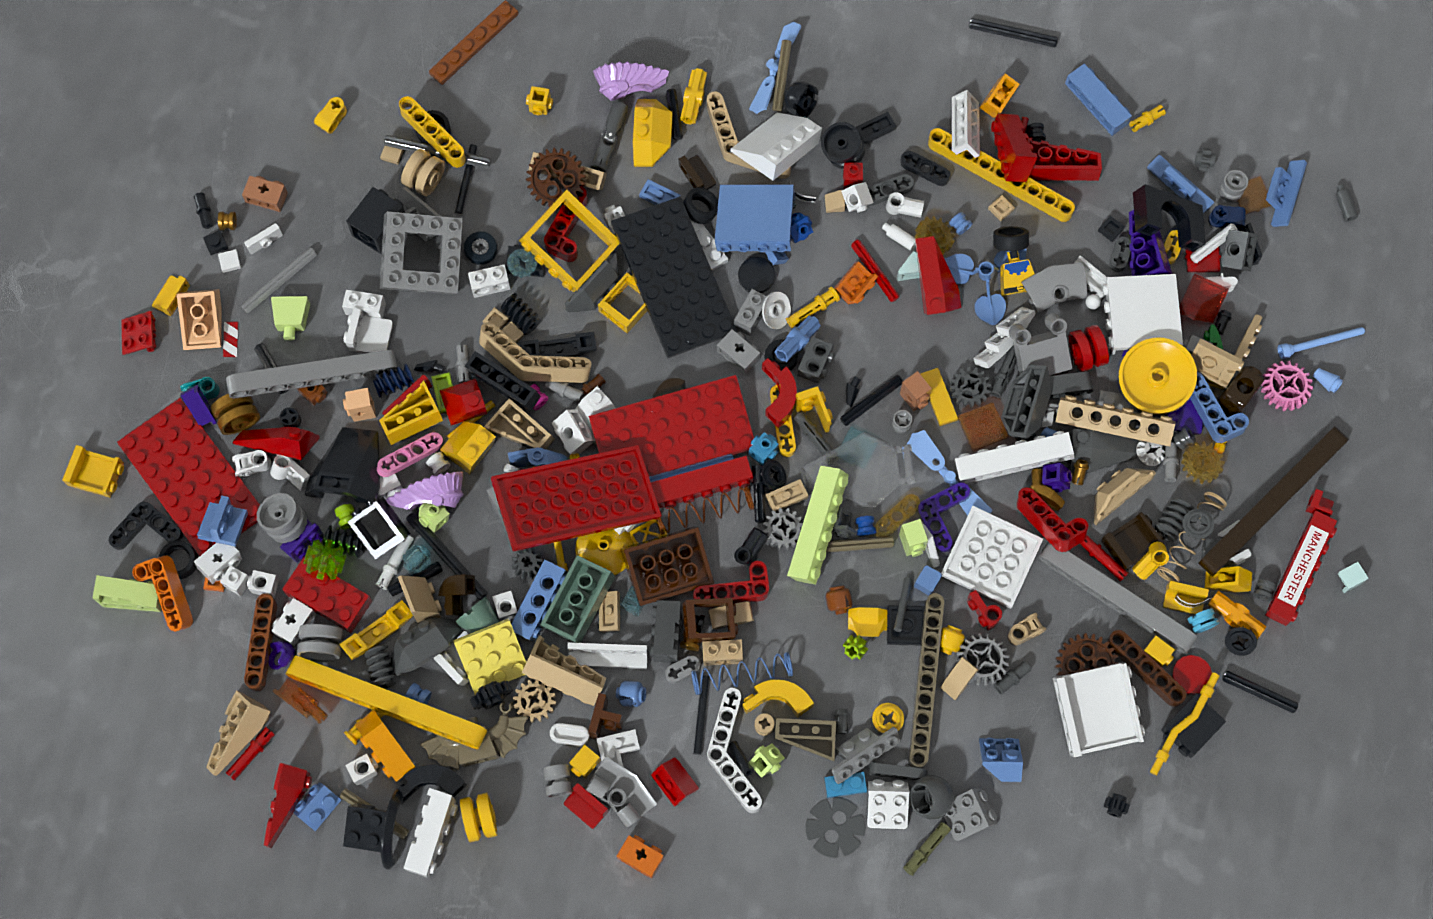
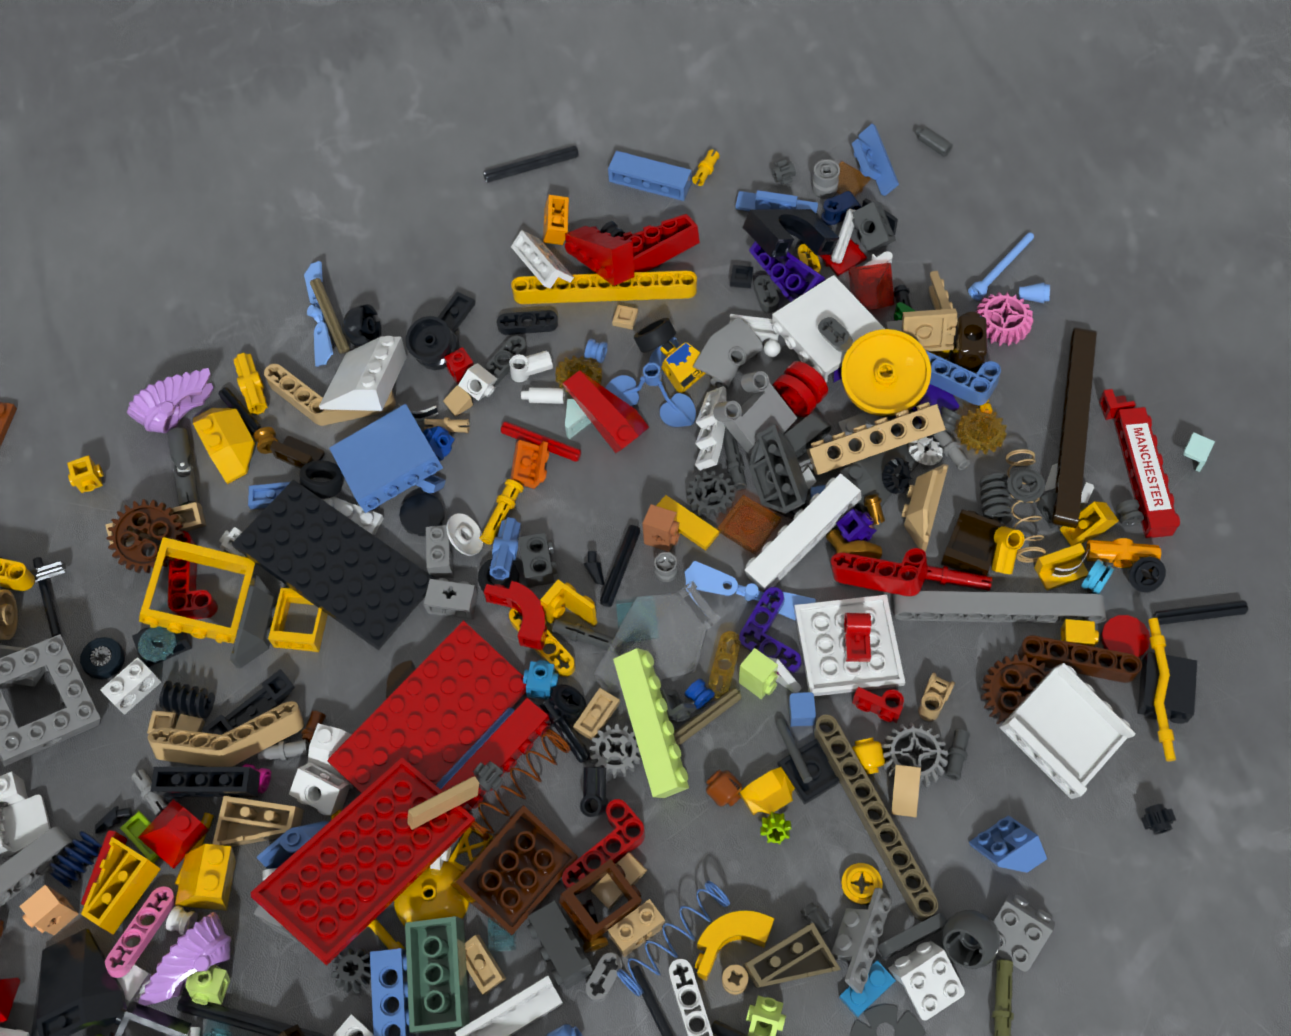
camera: 30 degrees left, 10 degrees down
(646, 493) = (443, 802): none -> tan tile
(679, 149) = (265, 437): none -> pearl gold wheel
(686, 494) = (488, 776): none -> dark grey gear
(815, 216) = (450, 425): none -> tan pin
(999, 555) = (857, 637): none -> red plate
(1116, 450) = (890, 482): none -> black gear
(1144, 323) = (838, 330): none -> dark grey beam

